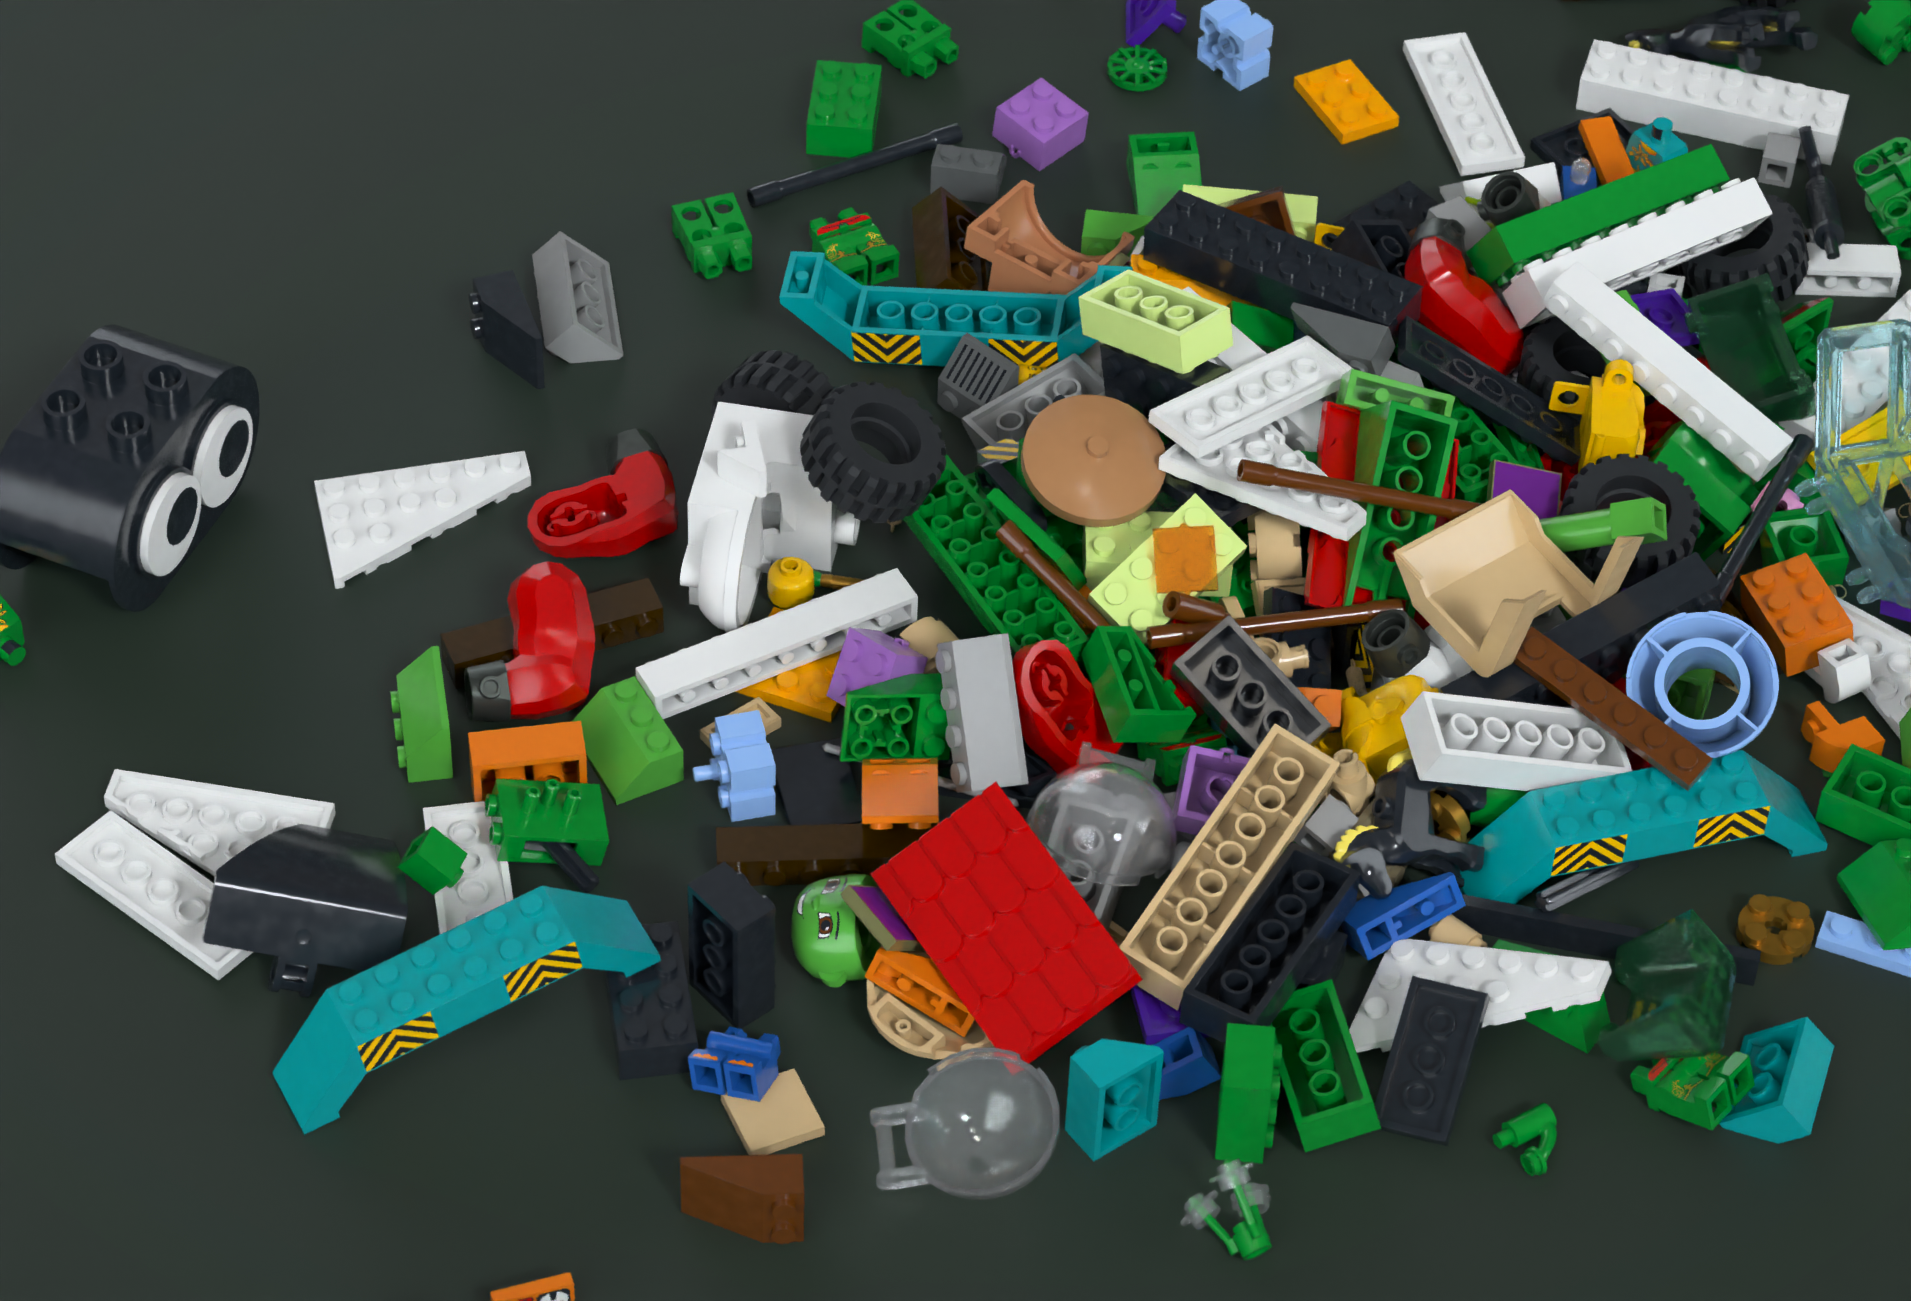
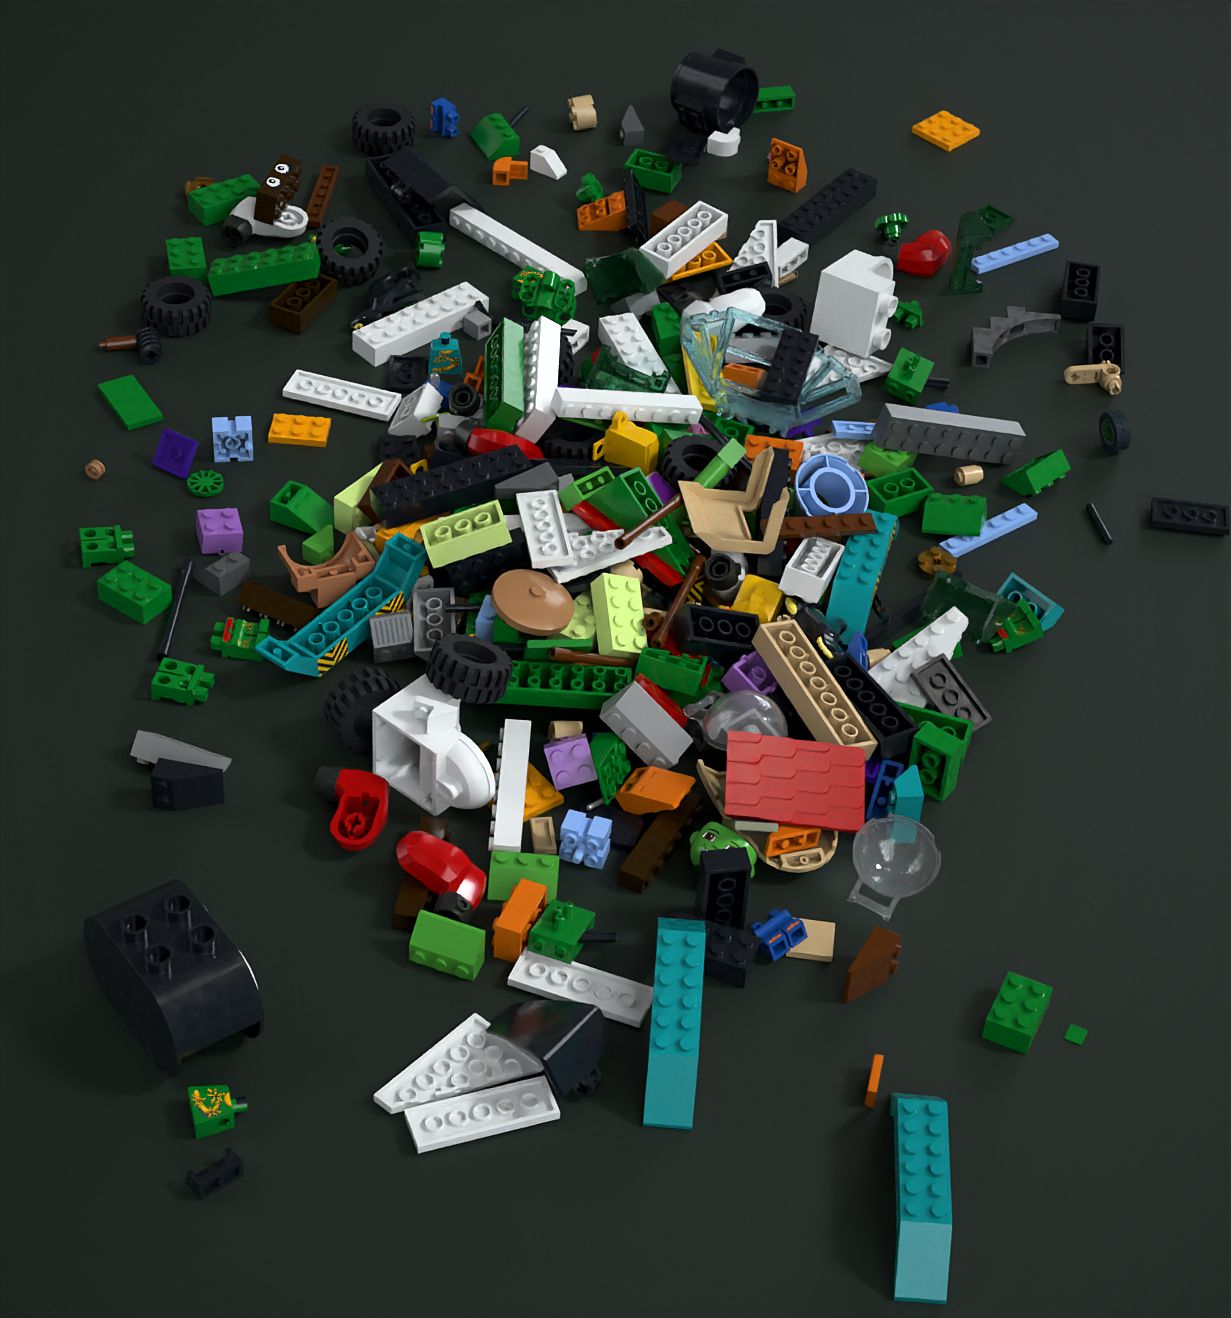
camera: 60 degrees left, 5 degrees down
(383, 513) = (269, 894): white wing -> none
(433, 861) = (563, 983): green brick -> none
(1185, 559) = (630, 602): clear orange piece -> none
(1249, 1200) = (983, 790): plant -> none
(1525, 1127) = (997, 695): green plant -> none
(1605, 149) = (424, 369): orange tile -> none

